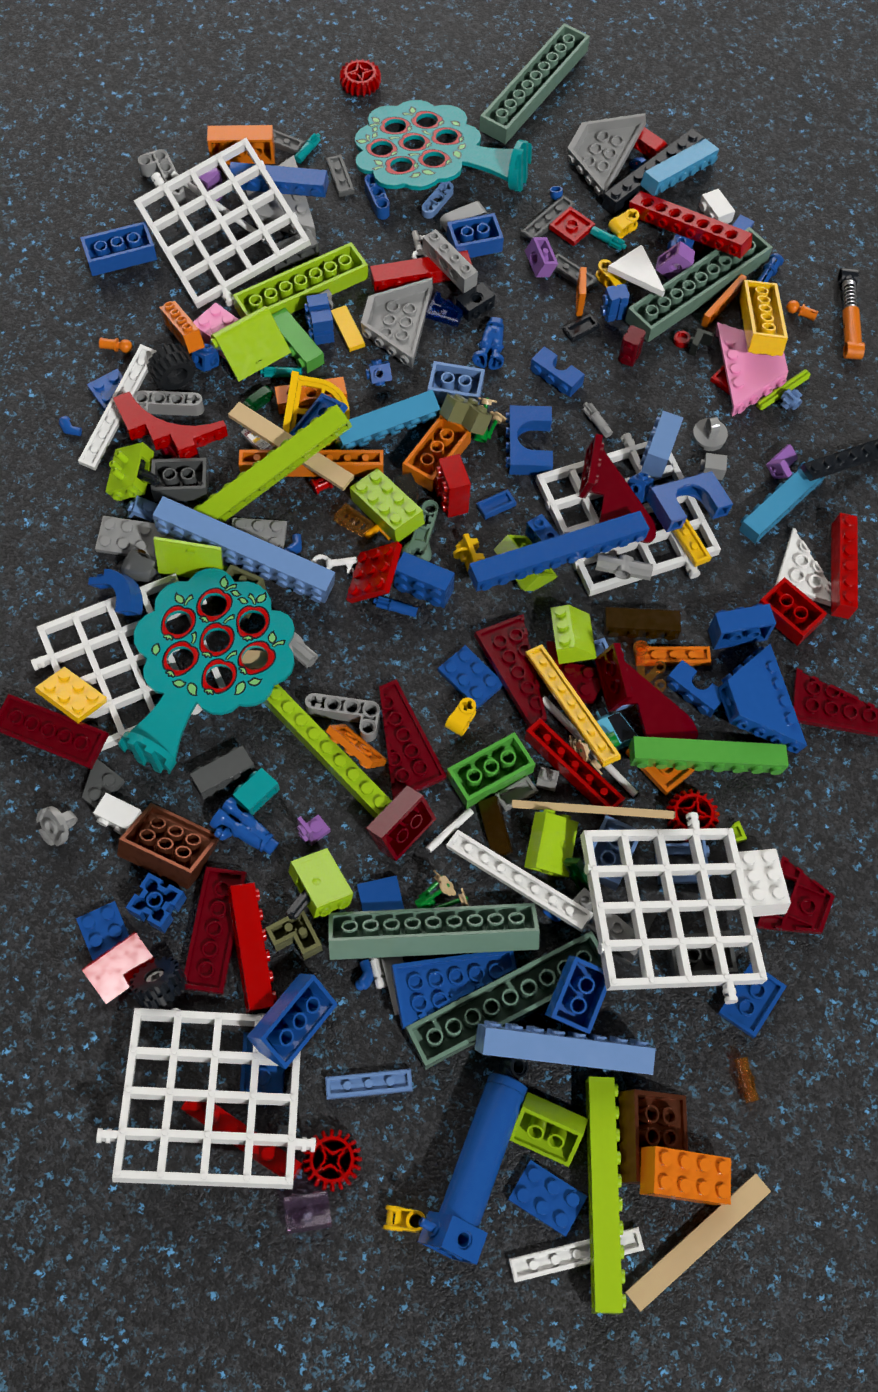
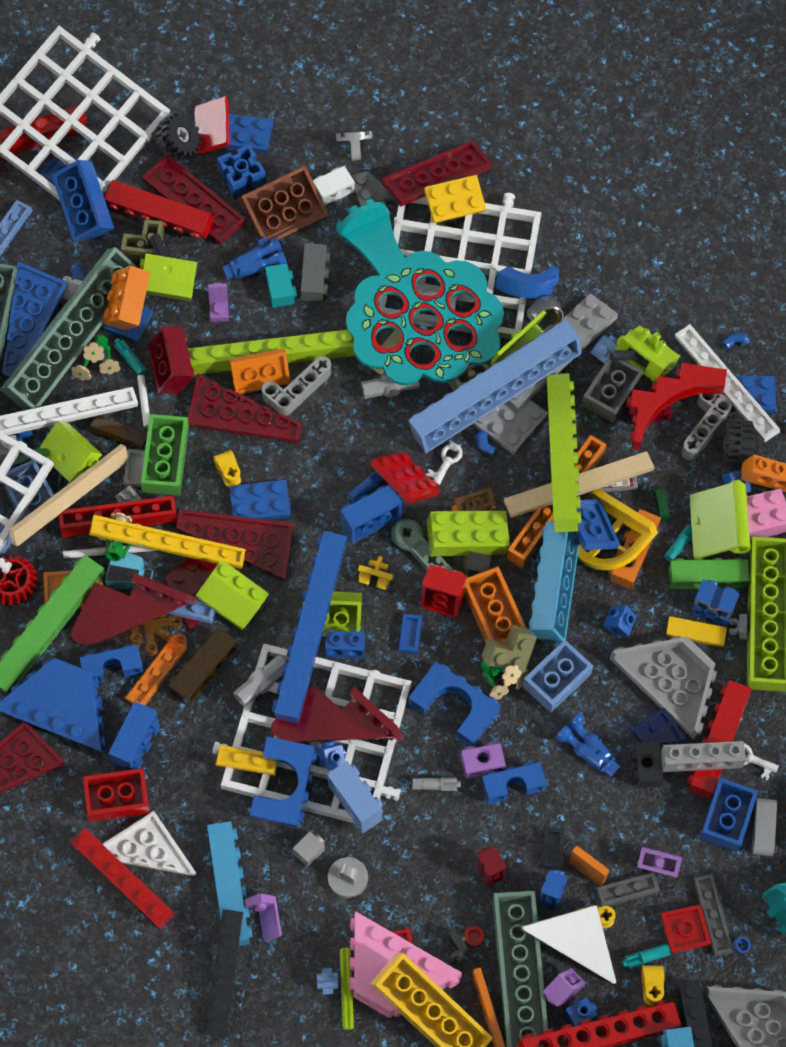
camera: 125 degrees right, 0 degrees up
(372, 895) = (126, 298): none -> orange brick
(415, 875) = (130, 357): none -> teal piece
(558, 397) = (475, 768): none -> medium lavender brick

